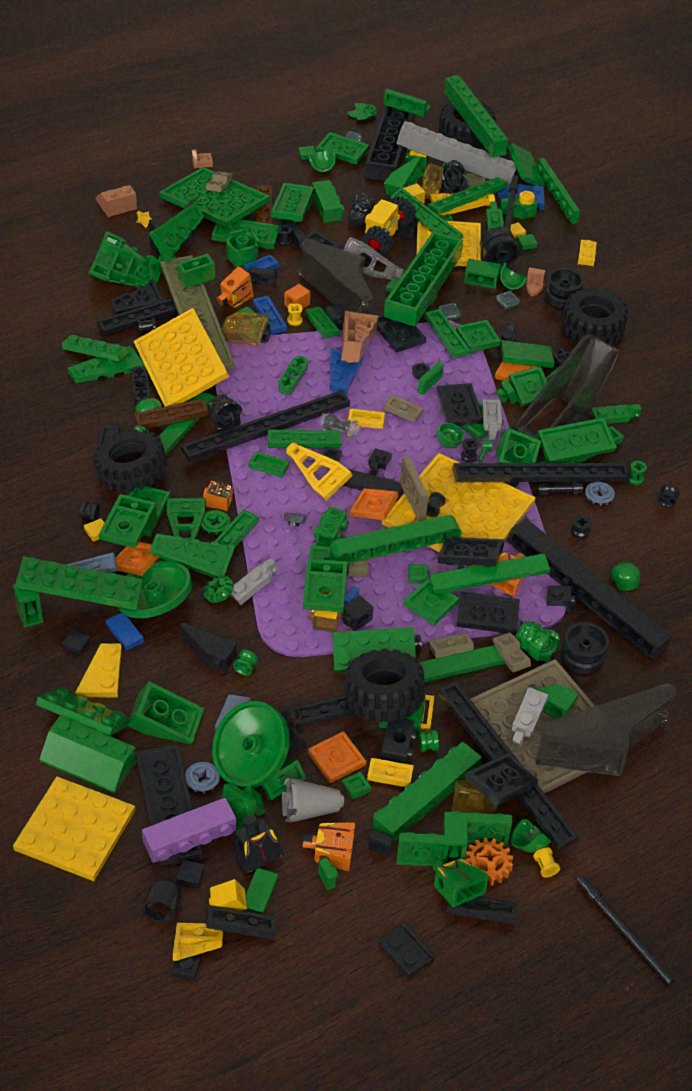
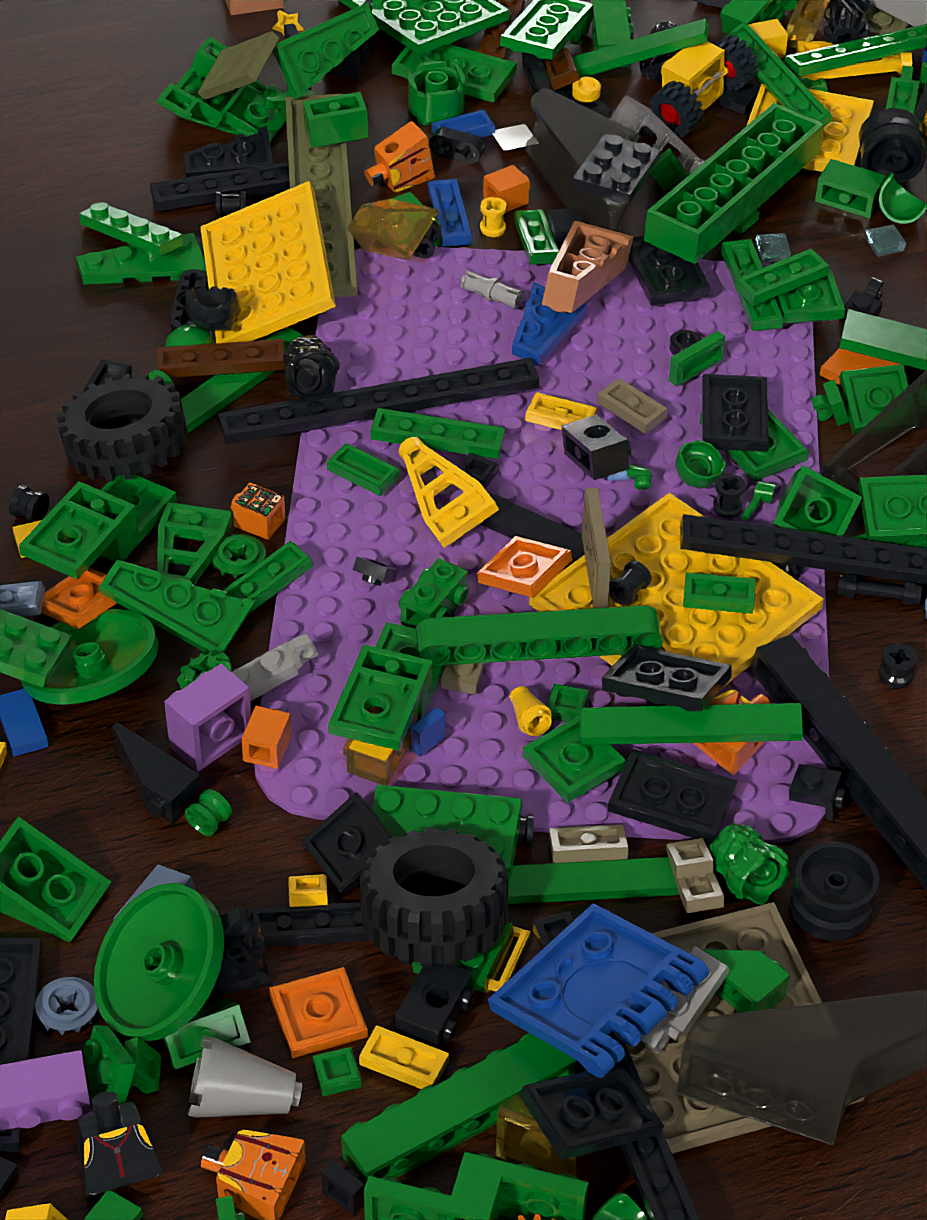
camera: 15 degrees right, 0 degrees up
(131, 246) = (238, 65): none -> olive tile
(160, 386) = (212, 308): none -> black hair
(231, 611) = (208, 717): none -> medium lavender brick
(265, 617) = (266, 737): none -> orange brick
(284, 235) = (518, 80): black bush -> none
(290, 268) = (513, 136): none -> white sticker
(300, 361) = (454, 331): green beam -> none
(308, 226) = (561, 69): none -> reddish brown tile
(309, 354) = (492, 289): none -> light grey pin
(311, 694) = (308, 890): none -> yellow tile
(324, 236) = (586, 89): none -> yellow tile
(326, 666) = (346, 842): none -> black tile
(344, 212) = (642, 48): none -> green tile
(347, 427) = (495, 412): clear piece -> none
(357, 613) = (431, 757): black brick -> none
(361, 279) = (616, 168): none -> black plate
(378, 460) = (559, 489): black plate -> none
(382, 275) = (668, 170): none -> green tile
(392, 434) = (596, 447): none -> black brick
(401, 581) = (530, 712): none -> yellow cone
(410, 445) = (640, 475): none -> green arm
(428, 741) = (485, 1018): green wheel -> none
(463, 327) = (781, 277): none -> green plate
(482, 502) = (719, 593): none -> green plate
(484, 714) = (595, 982): none -> blue hinge
(491, 417) = (785, 442): light grey hinge -> none

